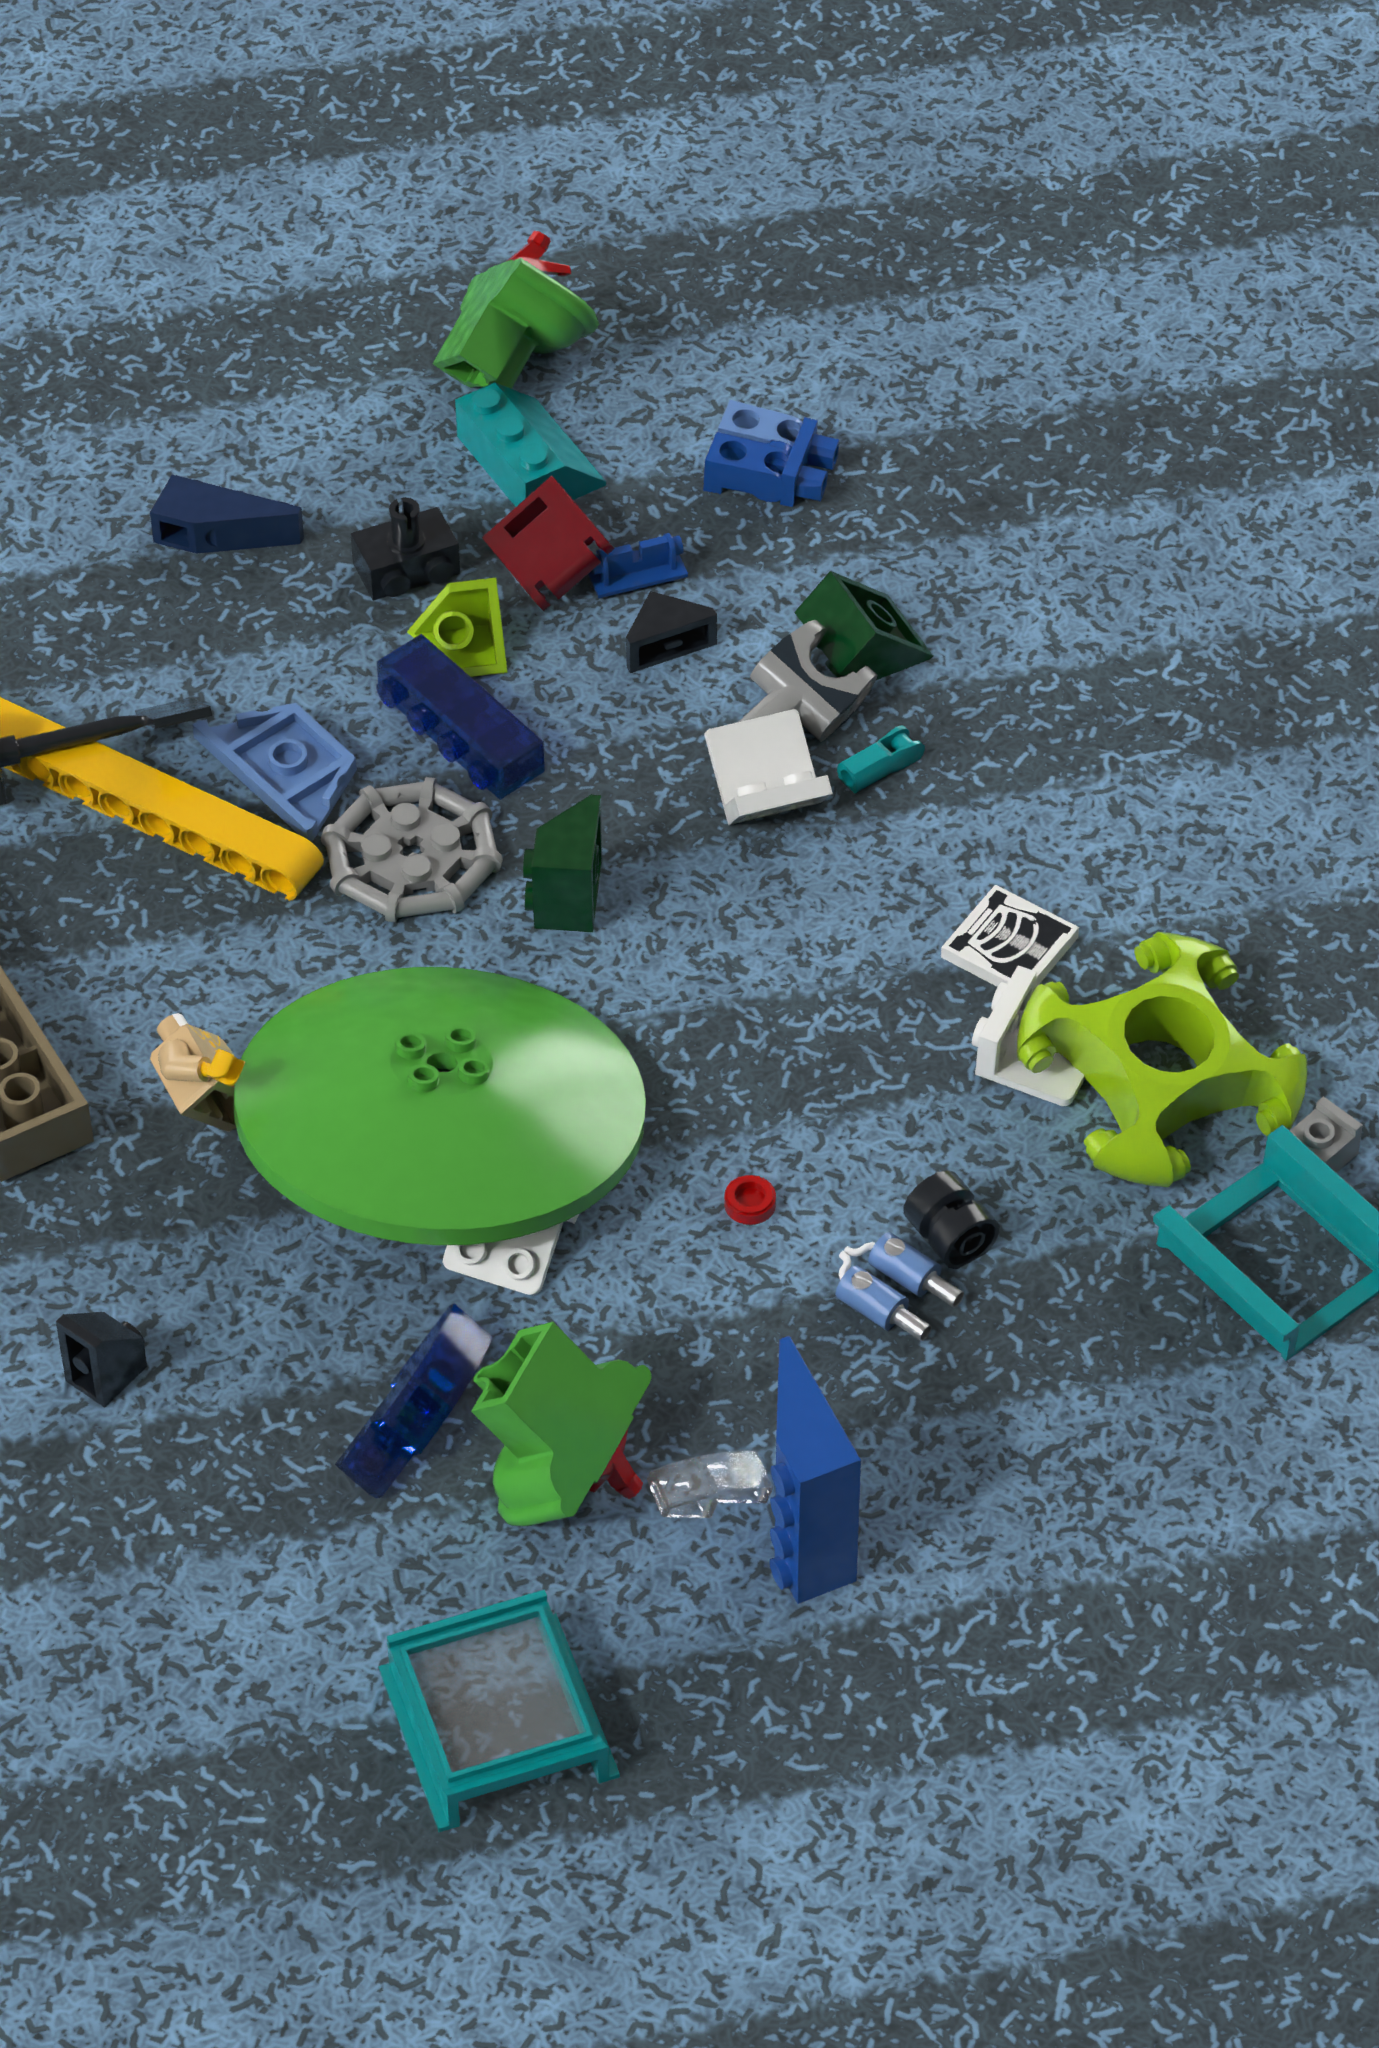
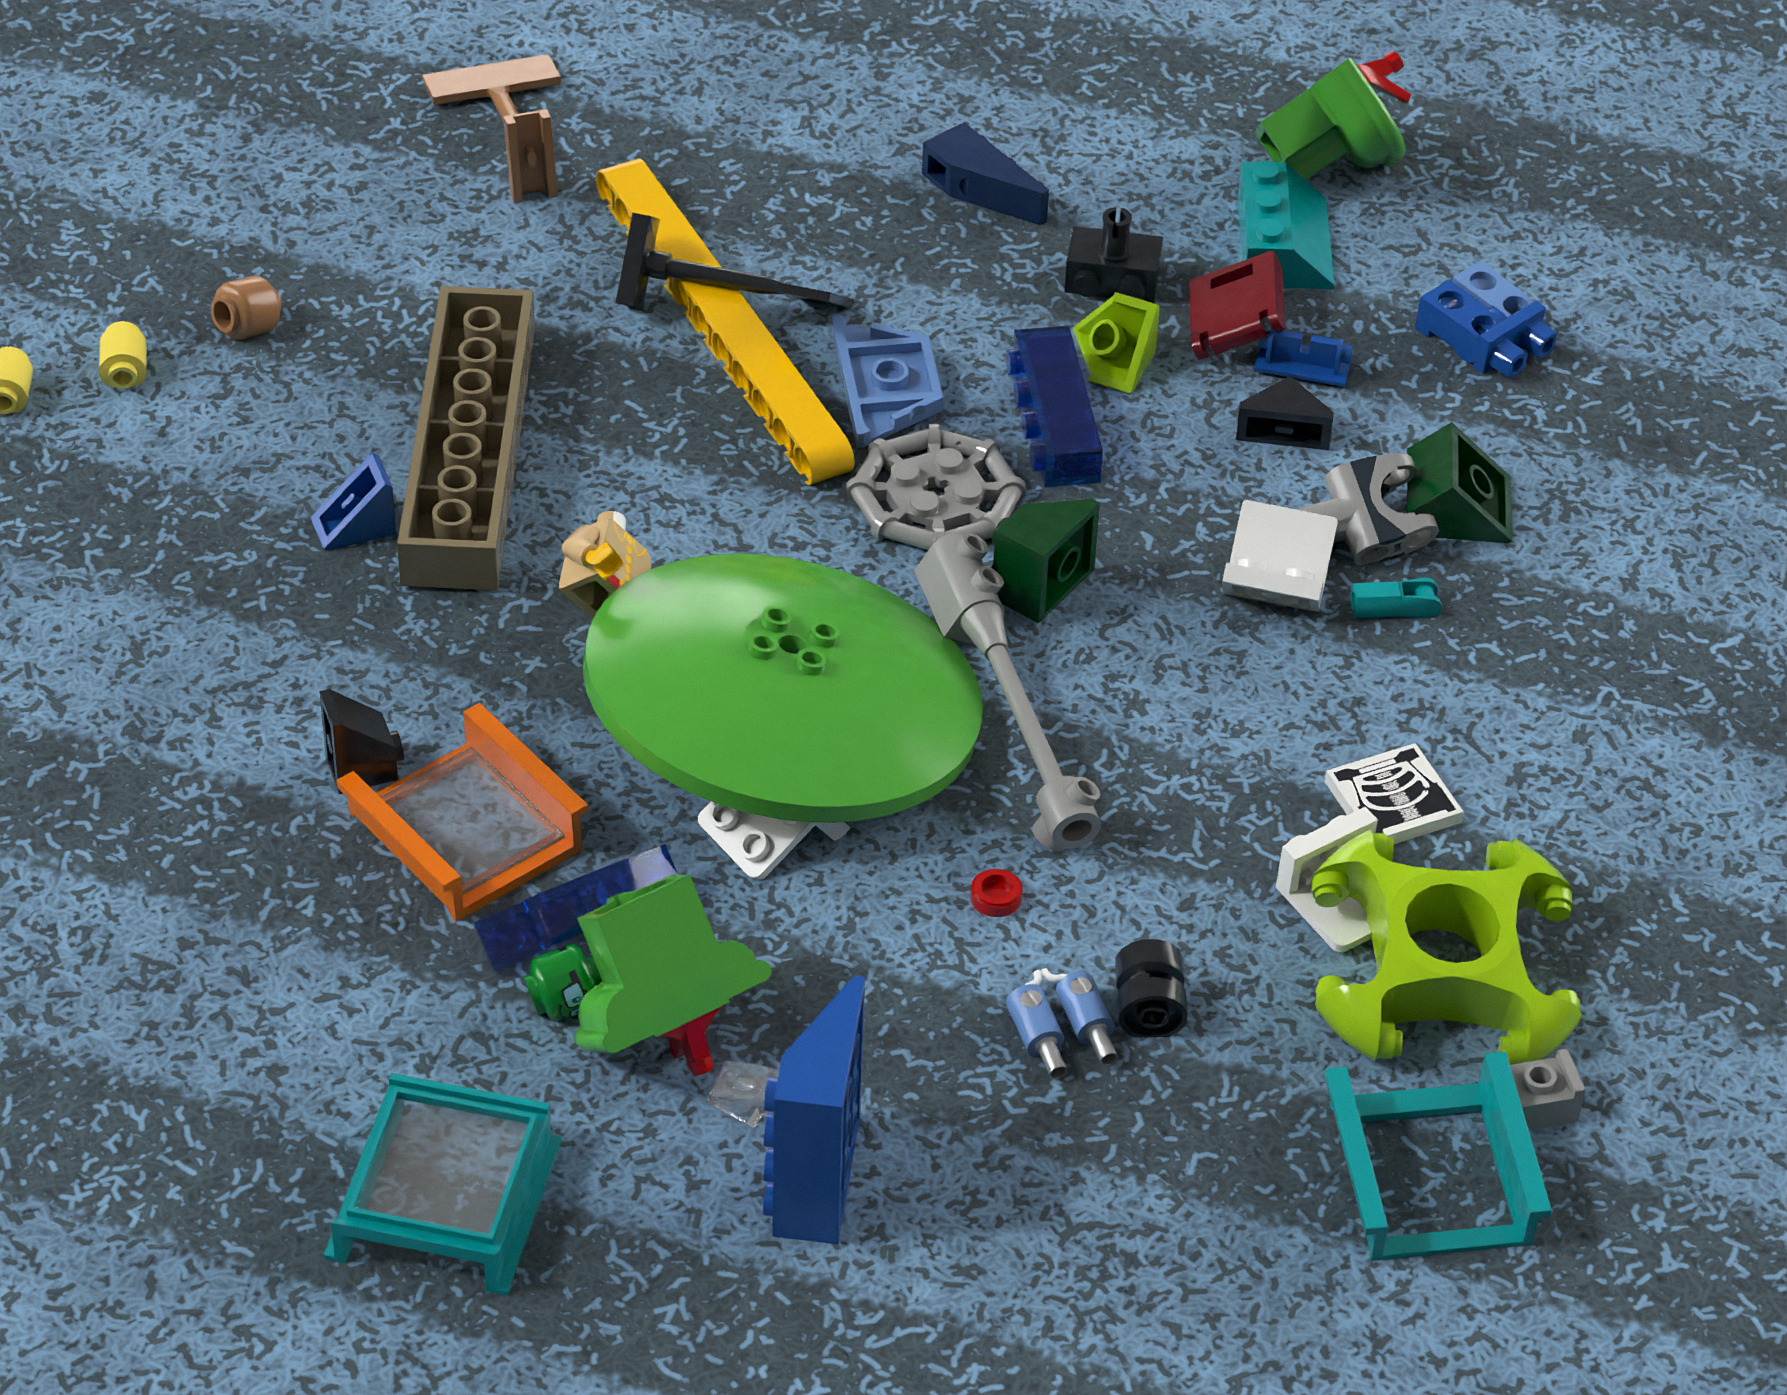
camera: 30 degrees right, 5 degrees down
(250, 1363) = (474, 817): none -> piece
(455, 1475) = (561, 981): none -> green head
(539, 950) = (969, 611): none -> light grey bar

